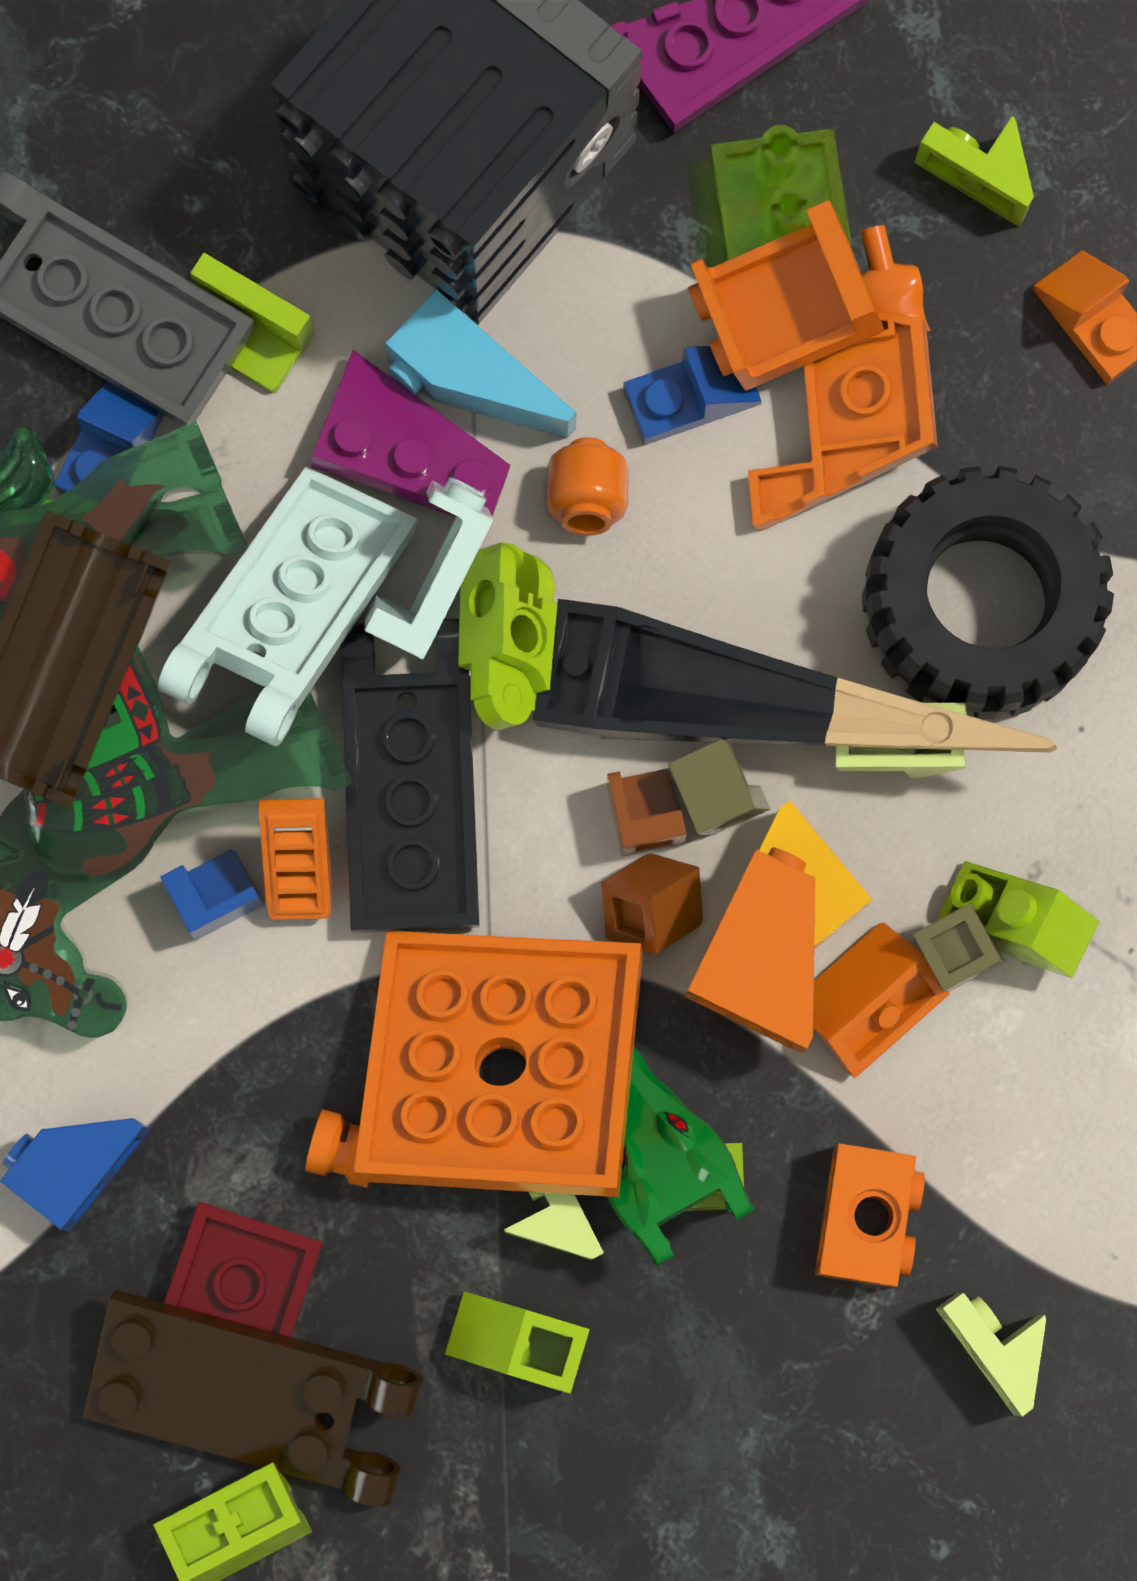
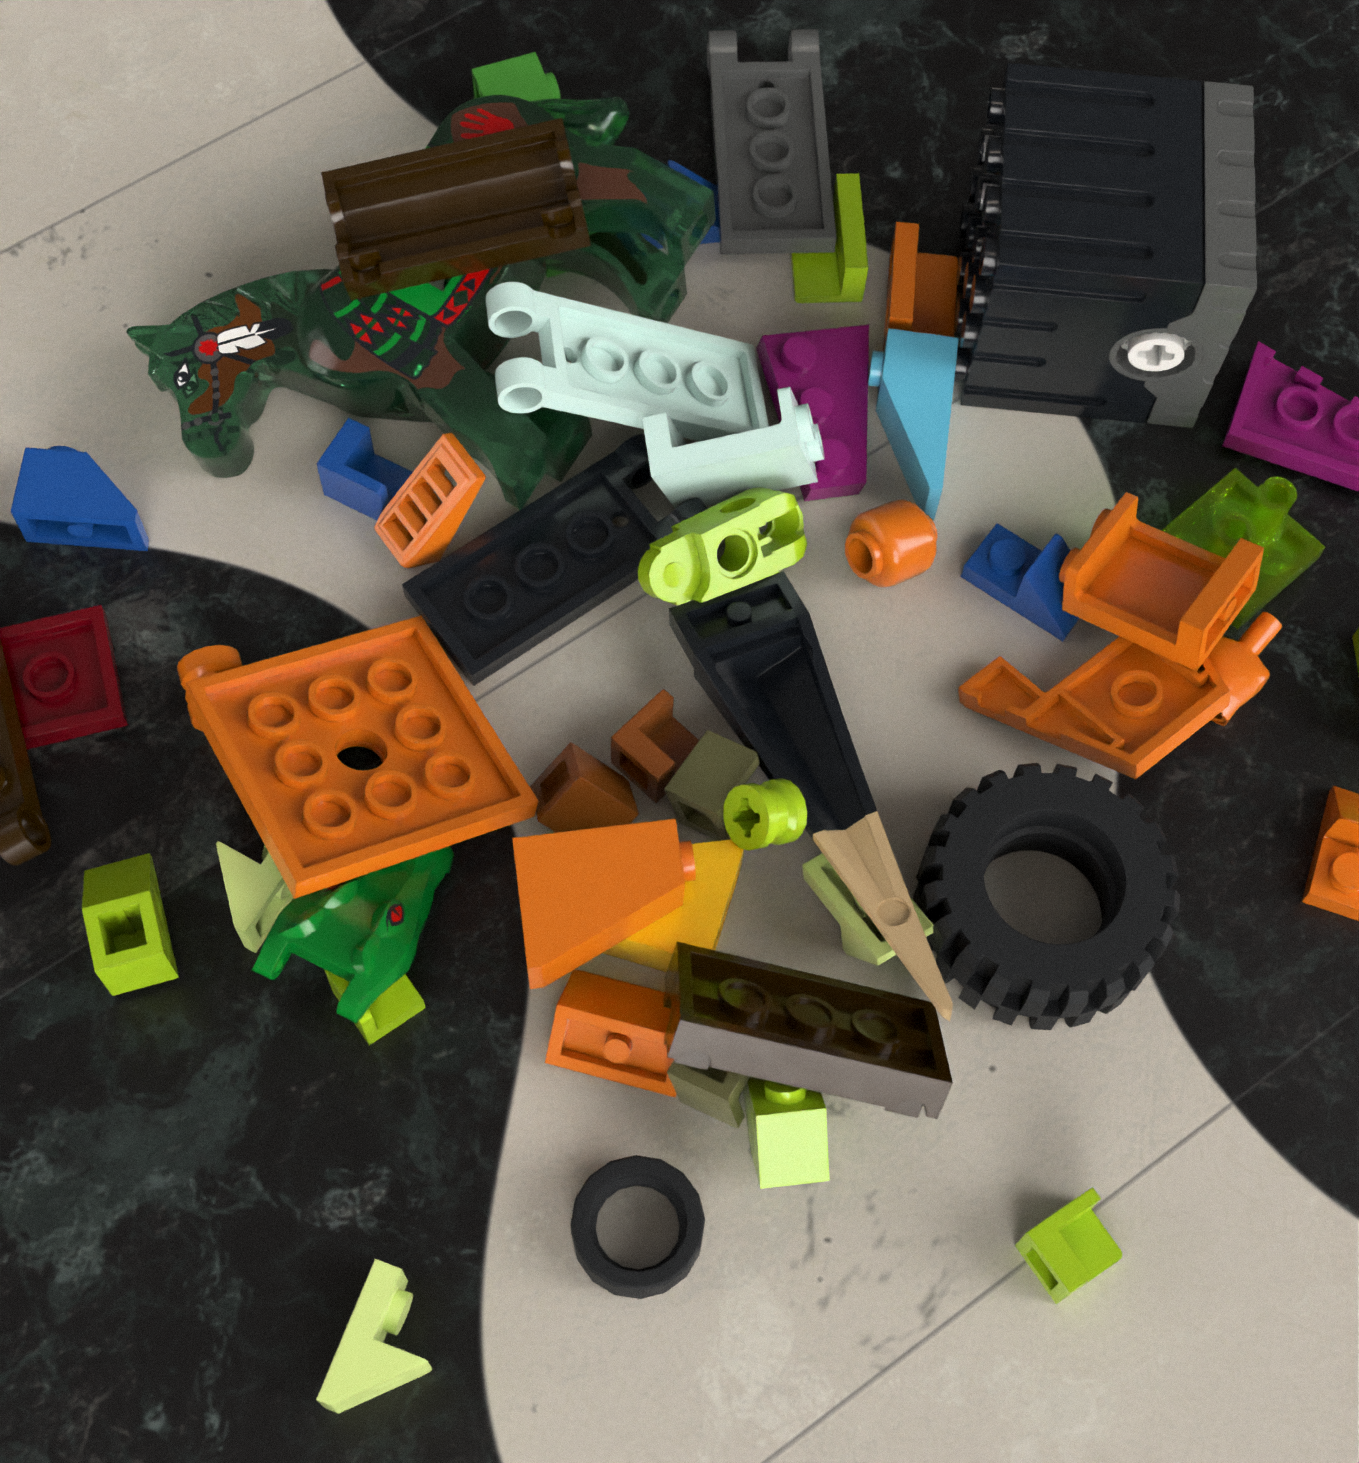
camera: 55 degrees right, 15 degrees down
(351, 283) = (919, 286): none -> orange panel
(781, 769) = (764, 814): none -> lime wheel
(843, 1247) = (445, 1111): orange brick -> none
(980, 862) = (805, 1031): none -> dark brown gear
(1079, 1068) = (646, 1173): none -> black tyre

